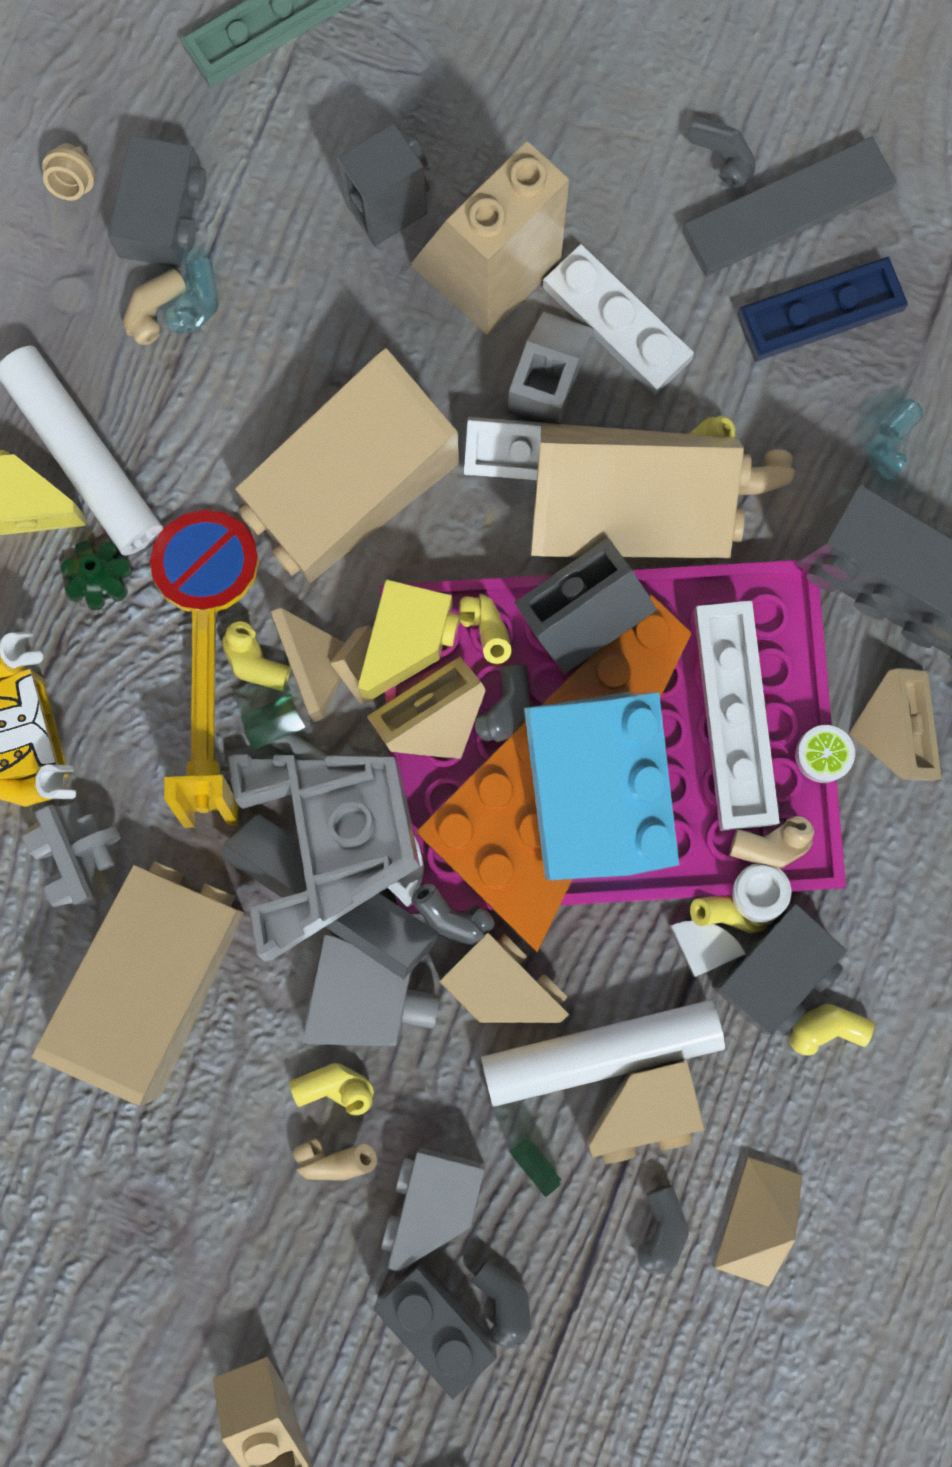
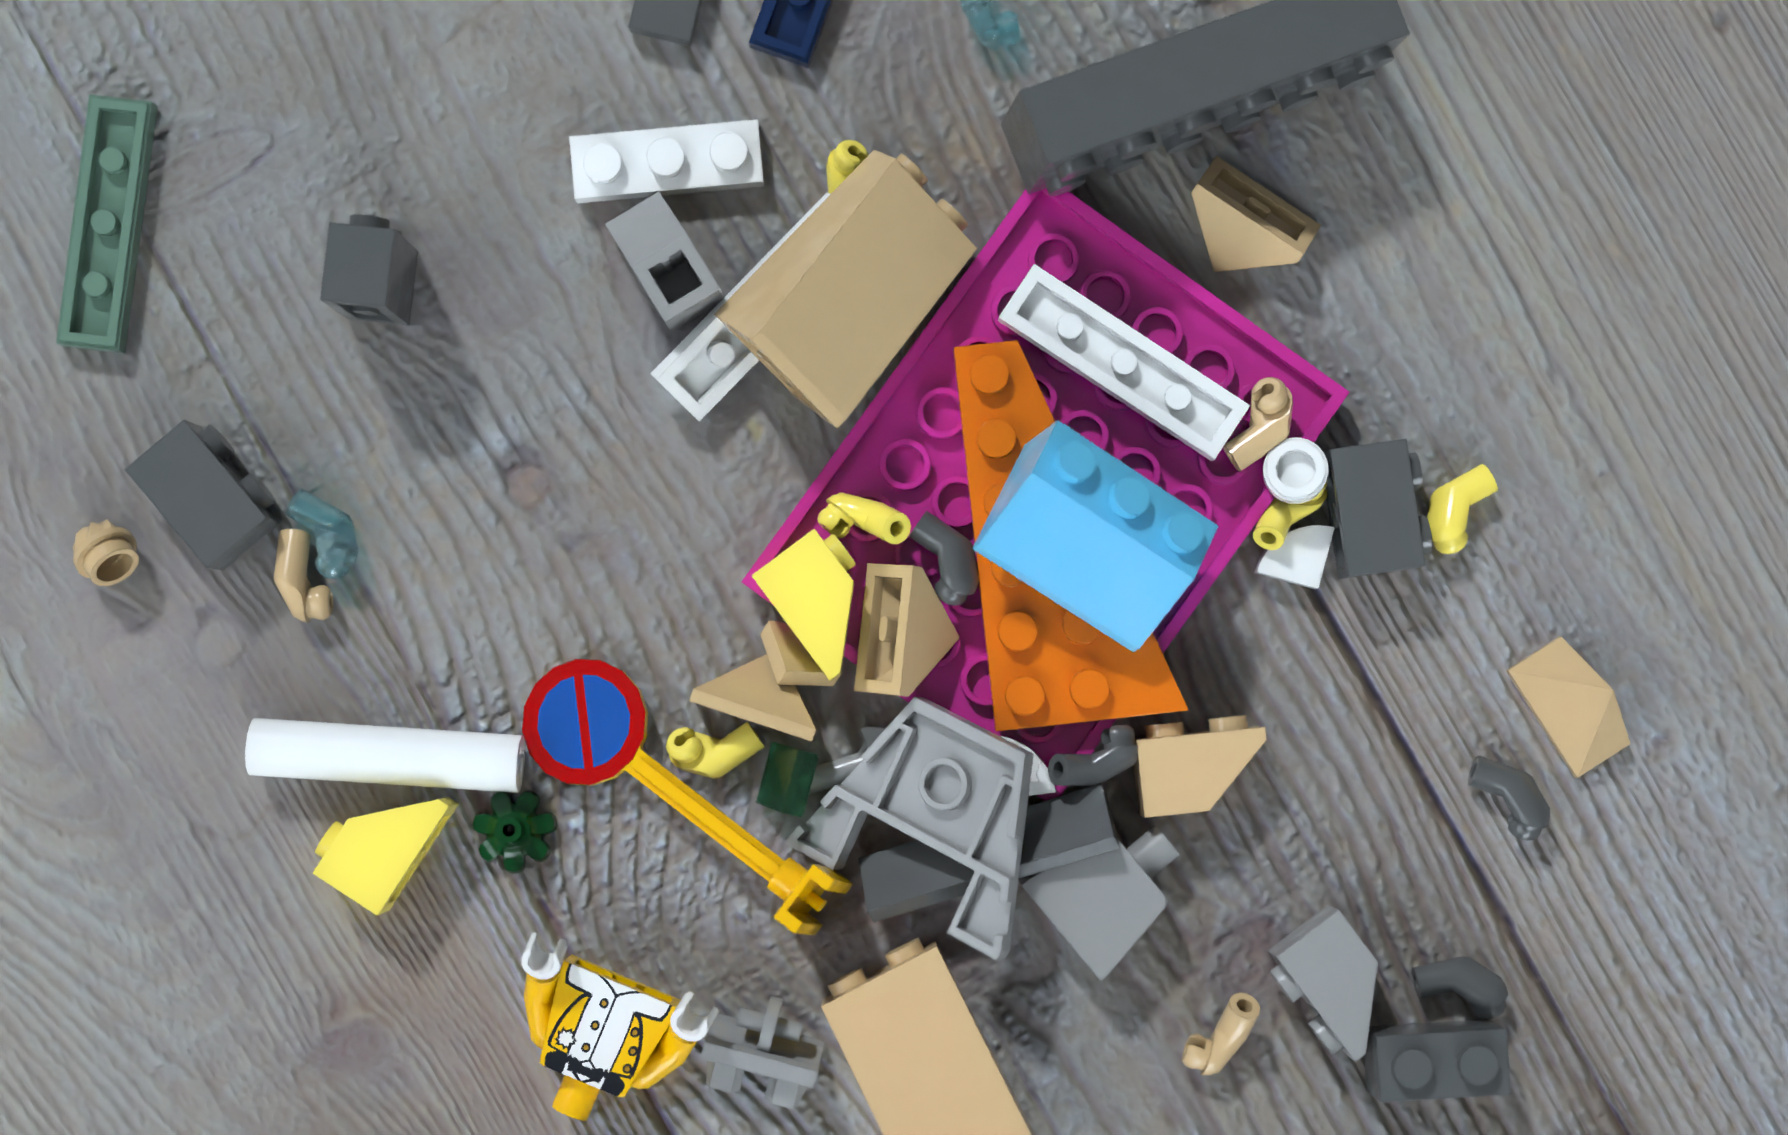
camera: 55 degrees left, 5 degrees up
(336, 1083) = (1155, 979): light yellow arm -> none
(349, 468) = (612, 525): tan slope -> none
(500, 240) = (510, 216): tan slope -> none
(535, 1164) = (1366, 861): clear green tile -> none
(586, 605) = (920, 417): dark grey brick -> none
(603, 1053) = (1319, 723): white piece -> none
(647, 1109) = (1397, 725): tan slope -> none
(774, 475) = (929, 141): tan arm -> none
(825, 754) = (1219, 312): tile -> none

